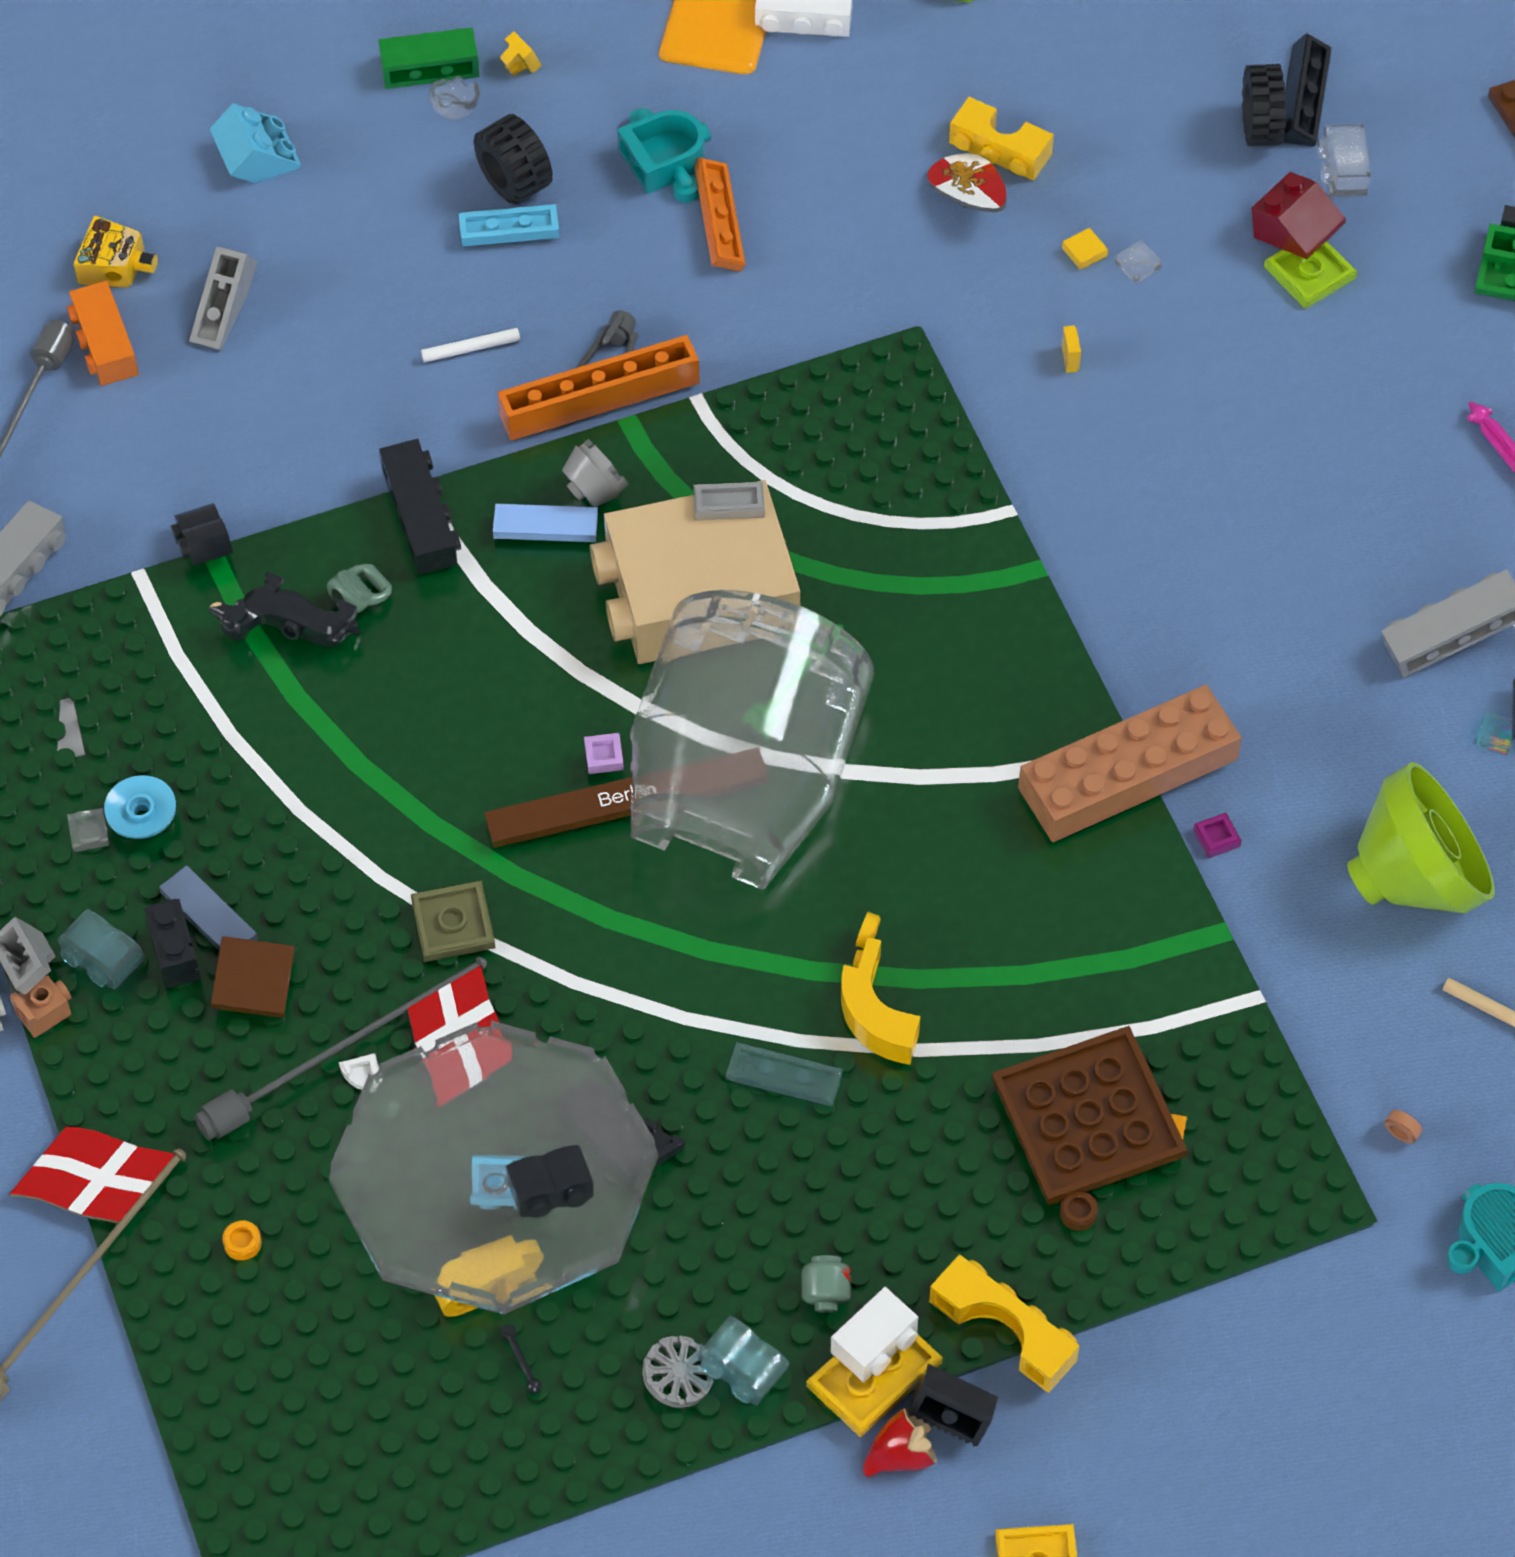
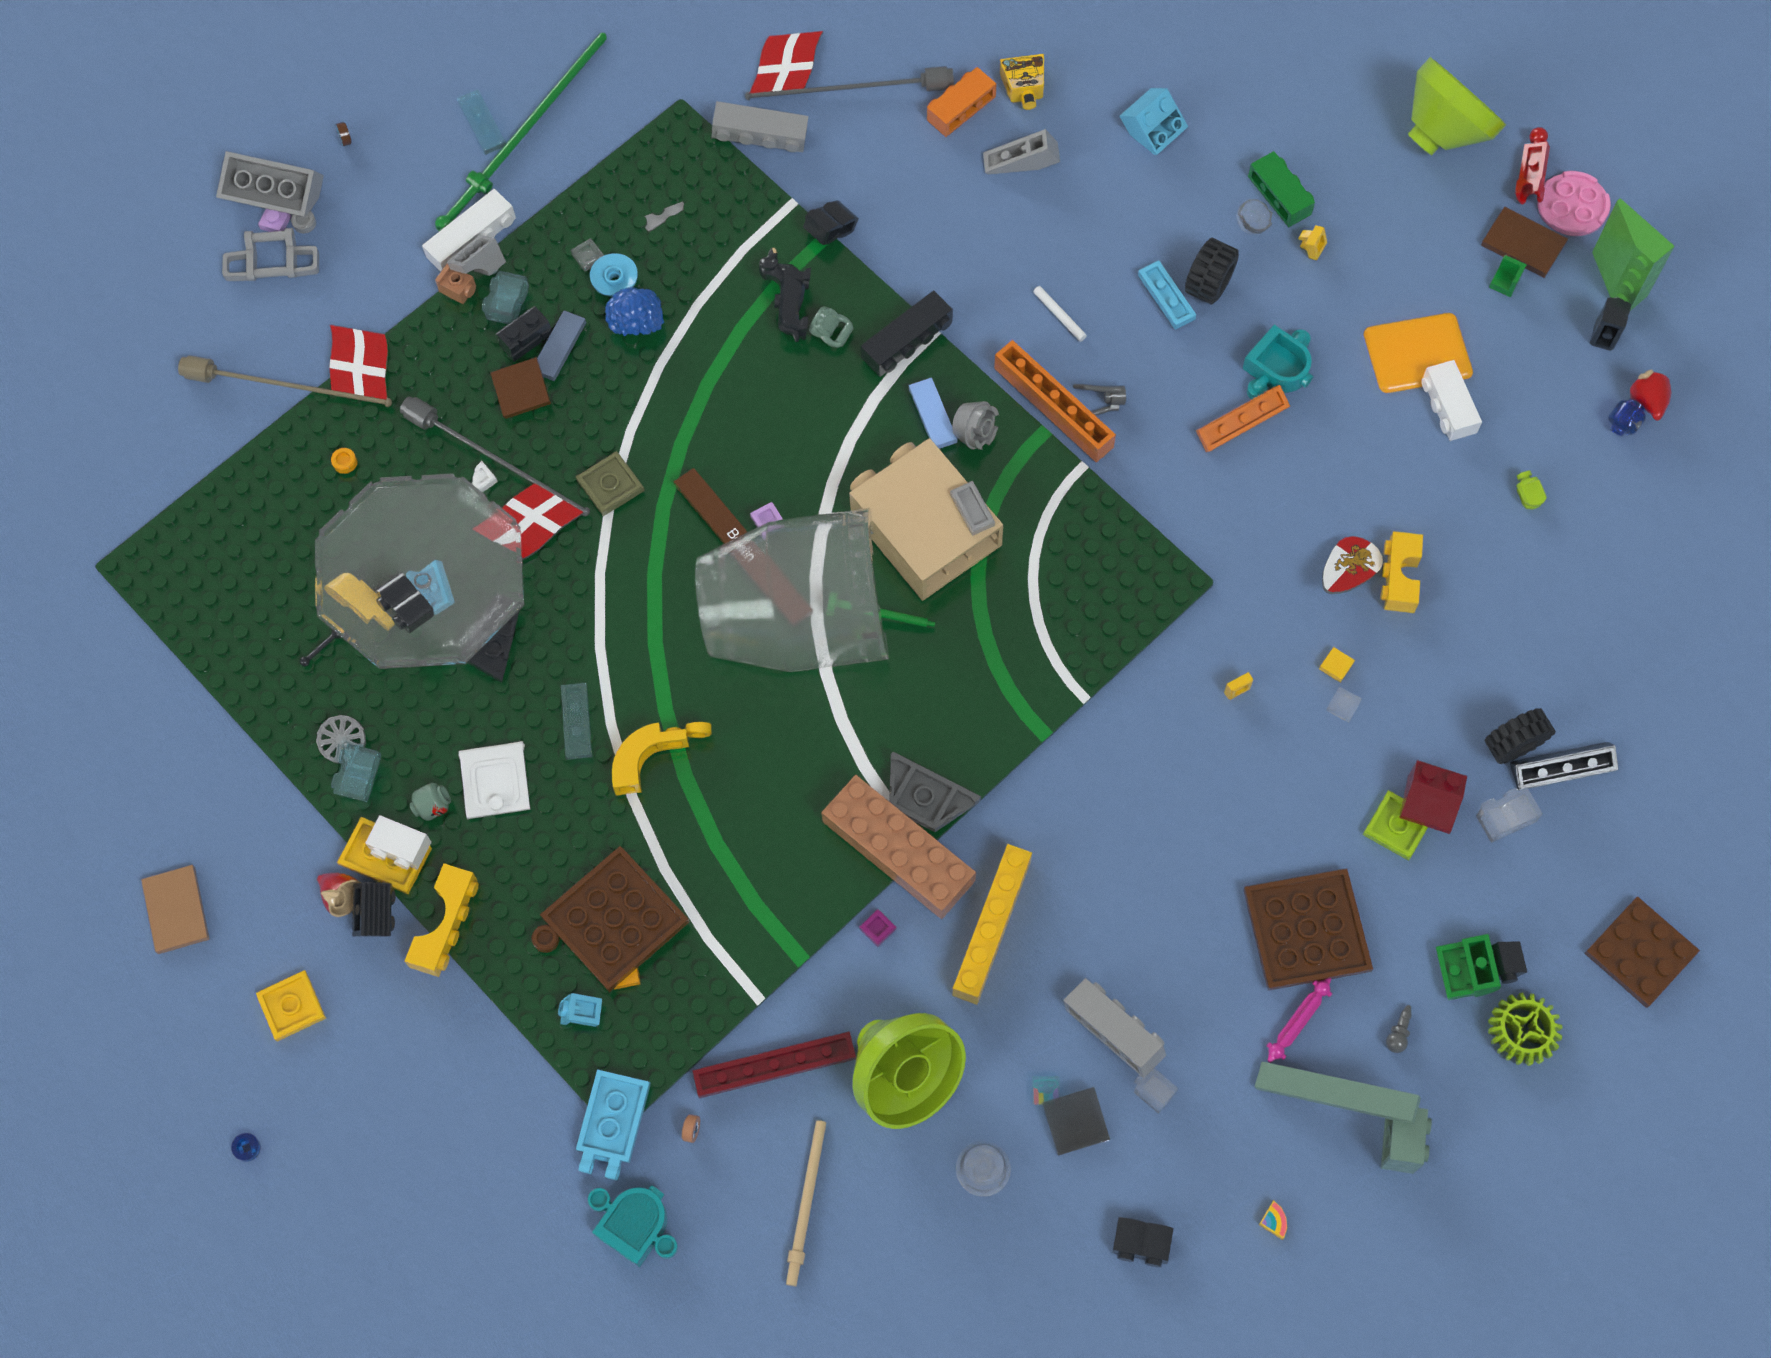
camera: 70 degrees right, 10 degrees up
(214, 800) = (634, 312): none -> blue hair
(816, 1200) = (494, 780): none -> white container
(1068, 710) = (926, 795): none -> dark grey wing
(1197, 1198) = (580, 1010): none -> medium azure bracket
(1269, 706) = (992, 924): none -> yellow brick
(1354, 1007) = (774, 1064): none -> dark red plate
(1363, 1213) = (611, 1122): none -> medium azure tile
(1403, 400) = (1307, 929): none -> reddish brown plate

